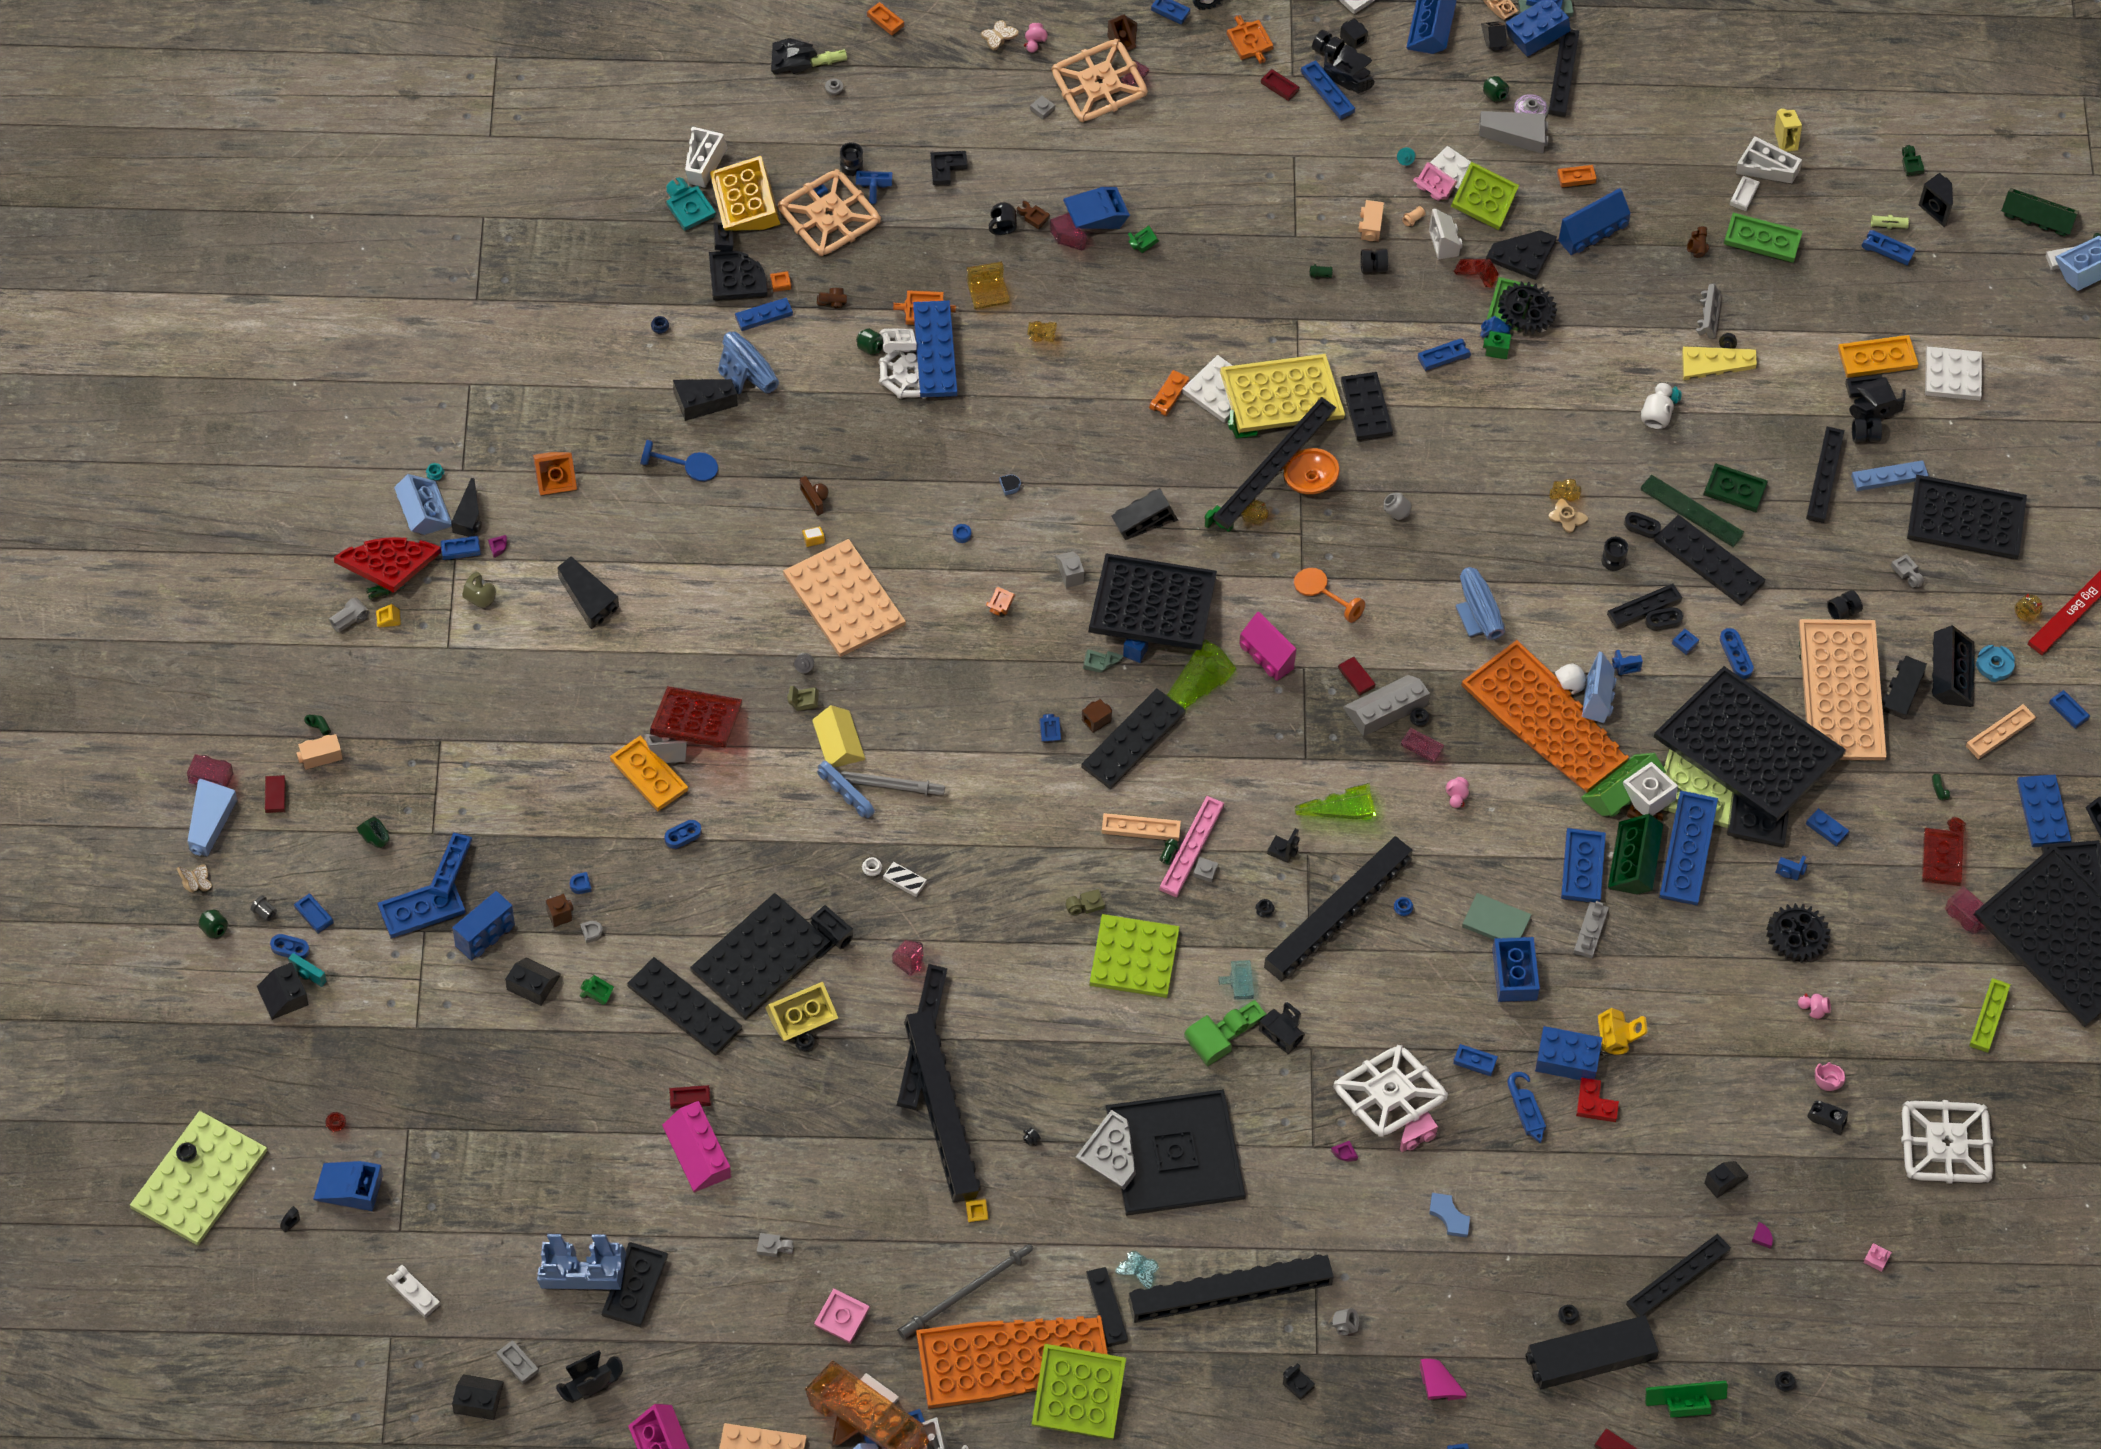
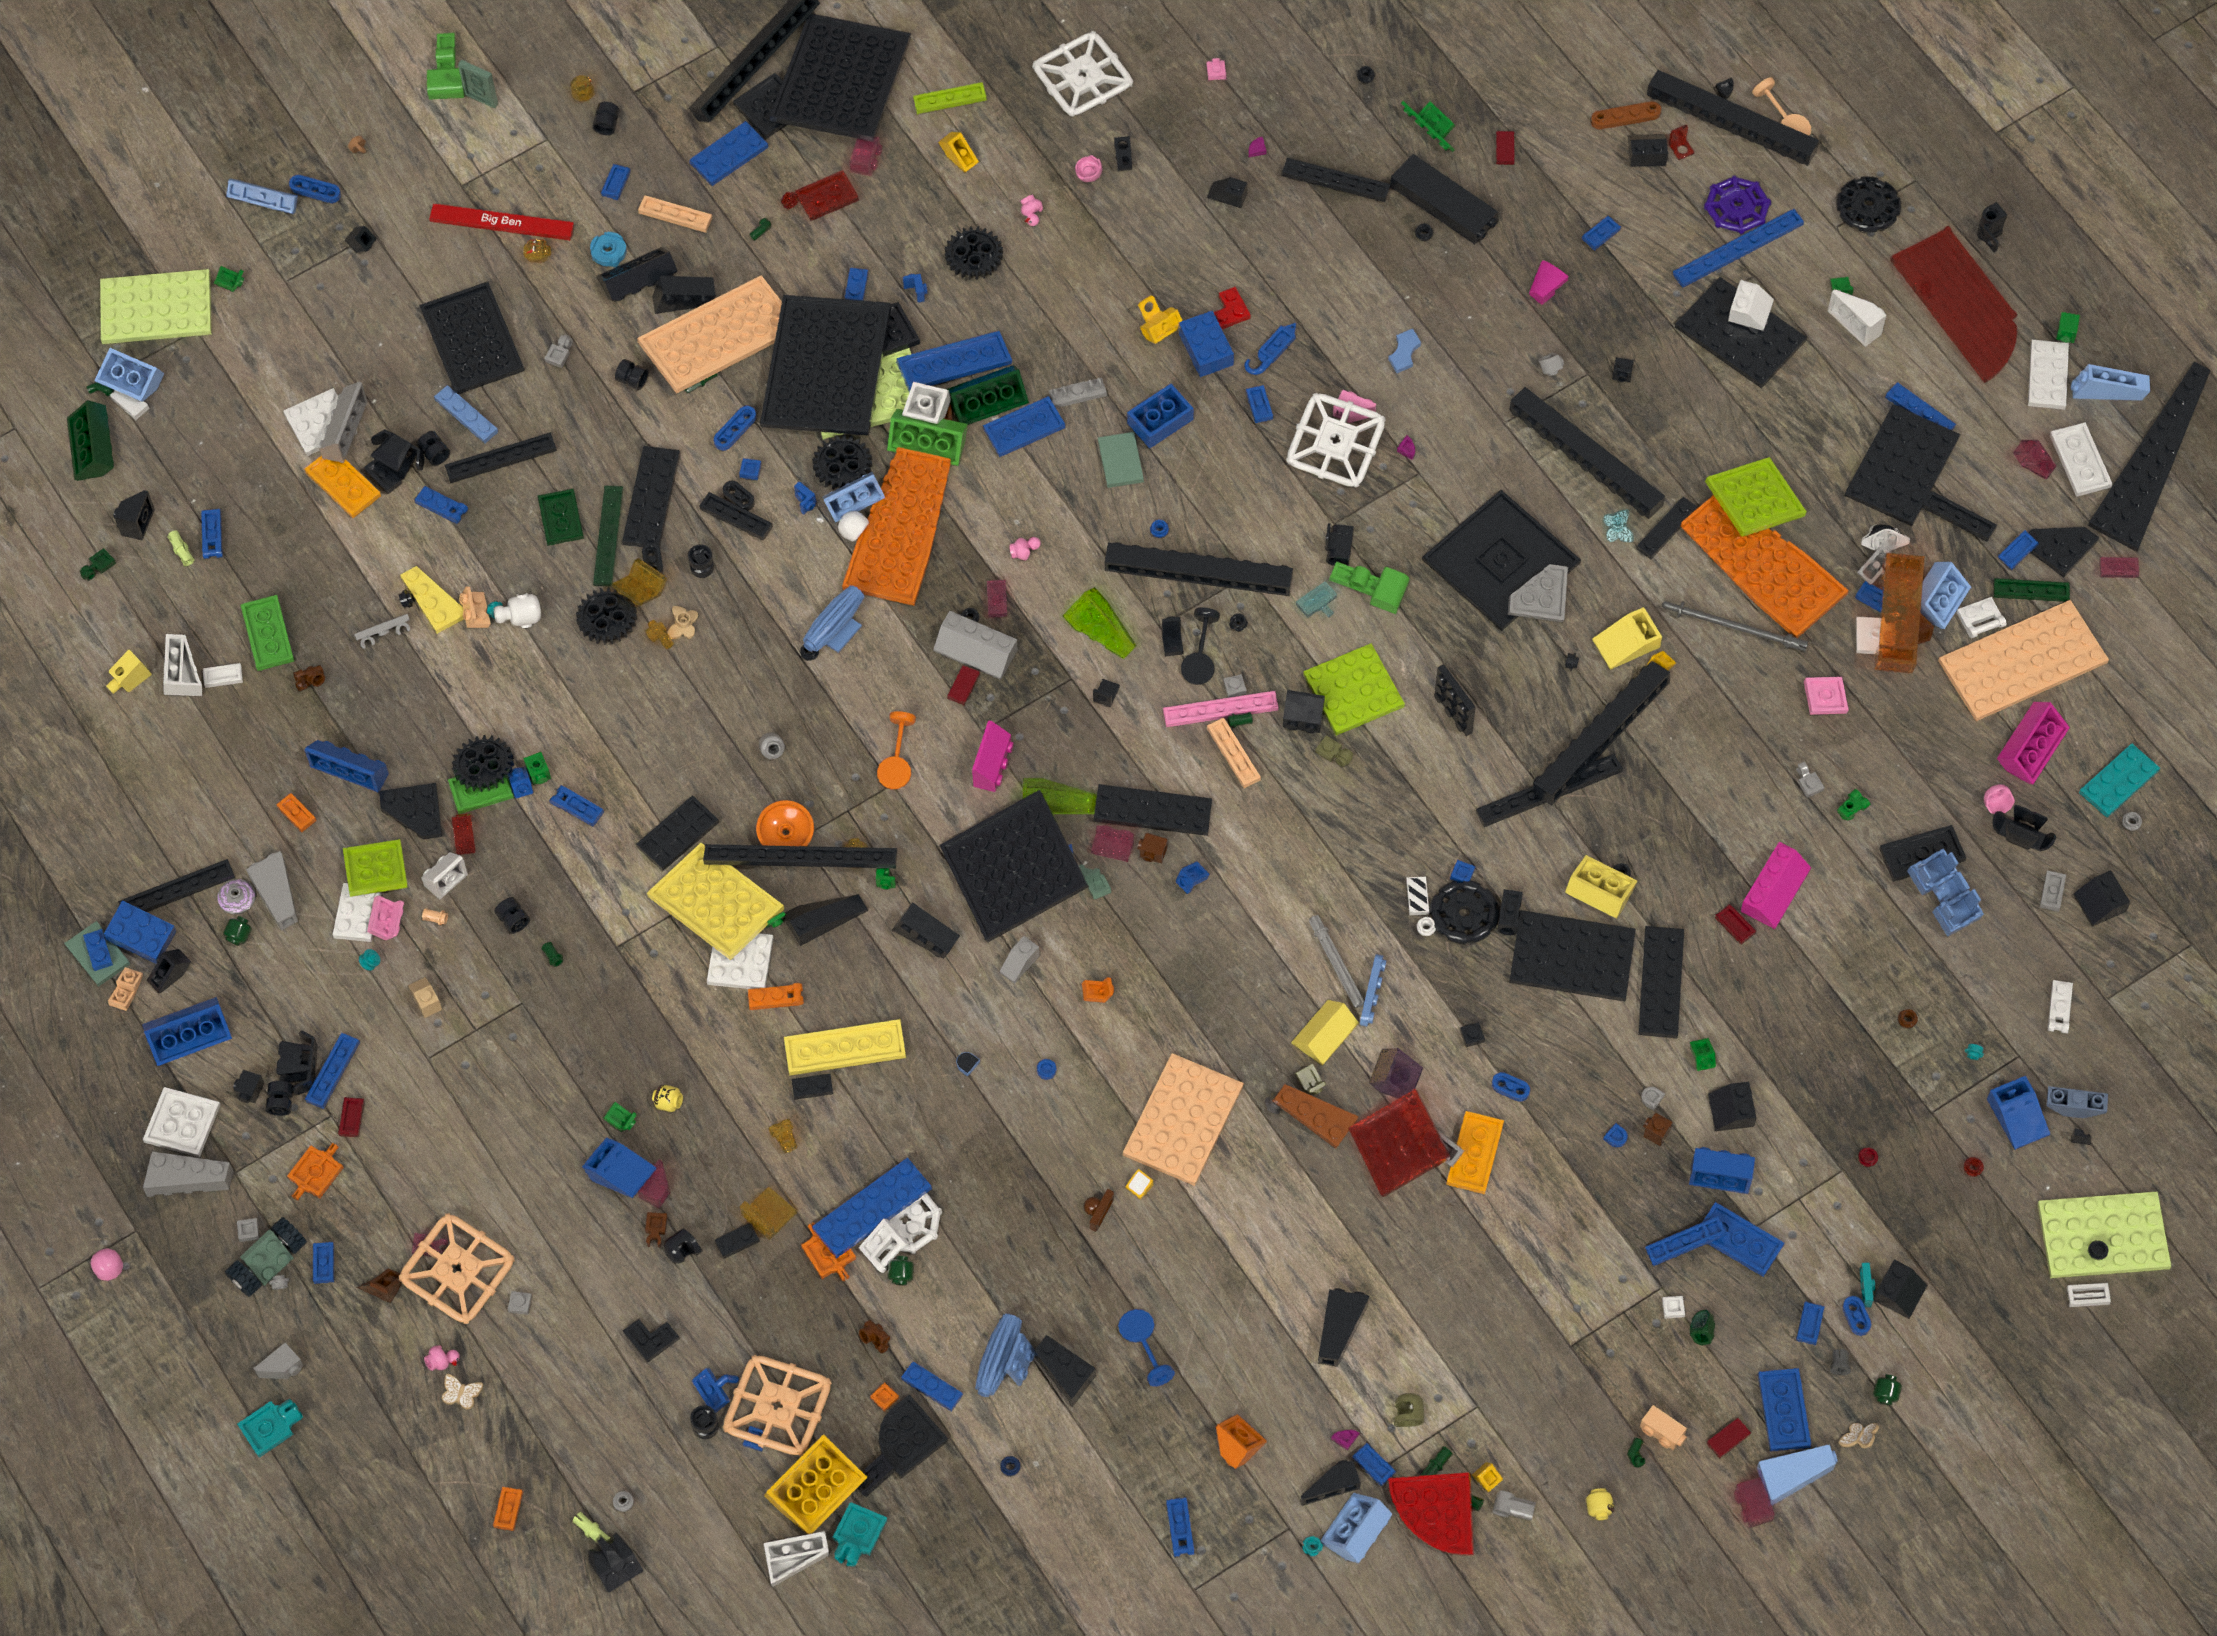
camera: 120 degrees left, 5 degrees up
(153, 1142) = (2089, 1302): none -> white tile
(262, 844) = (1784, 1409): none -> blue plate
(300, 671) = (1600, 1504): none -> light yellow head
(321, 1231) = (2076, 1102): none -> sand blue slope
(408, 828) = (1673, 1307): none -> white tile
(409, 1050) = (1868, 1157): none -> dark red plate
(425, 588) = (1436, 1464): none -> dark green axle
(429, 1194) = (1974, 1051): none -> teal plate
(500, 1160) = (1909, 1014): none -> reddish brown plate
(521, 399) = (1180, 1526): none -> blue plate
(634, 1379) = (1998, 799): none -> bright pink hair
(721, 1259) = (1853, 805): none -> green plate
(751, 839) = (1472, 1034): none -> black plate
(759, 759) = (1395, 1073): none -> slope
(762, 685) = (1317, 1115): none -> dark orange wing
(867, 893) = (1467, 901): none -> black plate
(898, 923) = (1462, 872): none -> blue plate
(909, 956) = (1490, 839): clear pink slope -> none
(983, 254) = (737, 1240): none -> black plate
(1016, 1193) = (1628, 639): none -> light yellow slope
(1055, 1004) = (1454, 700): none -> black plate
(1072, 375) = (812, 1086): none -> black plate
(1087, 411) = (844, 1047): none -> light yellow plate
(1124, 692) = (1113, 843): none -> clear pink bracket
(1135, 276) = (667, 1098): none -> light yellow head
(1136, 896) = (1303, 711): none -> black slope
(1219, 453) = (818, 918): none -> black wedge
(1246, 853) = (1199, 667): none -> black piece
(1268, 768) = (1106, 693): none -> black bracket
(1347, 174) = (425, 997): none -> tan slope
(1372, 220) = (466, 944): light nougat brick -> none
(1620, 496) = (641, 584): none -> clear yellow bracket
(1625, 704) = (842, 461): none -> black gear
(1628, 466) = (606, 616): none -> black gear
(1686, 380) = (474, 609): none -> light nougat bracket
(1807, 412) = (441, 504): none -> blue plate
(1922, 985) = (958, 151): none -> yellow slope
(1930, 374) = (343, 423): none -> light grey slope

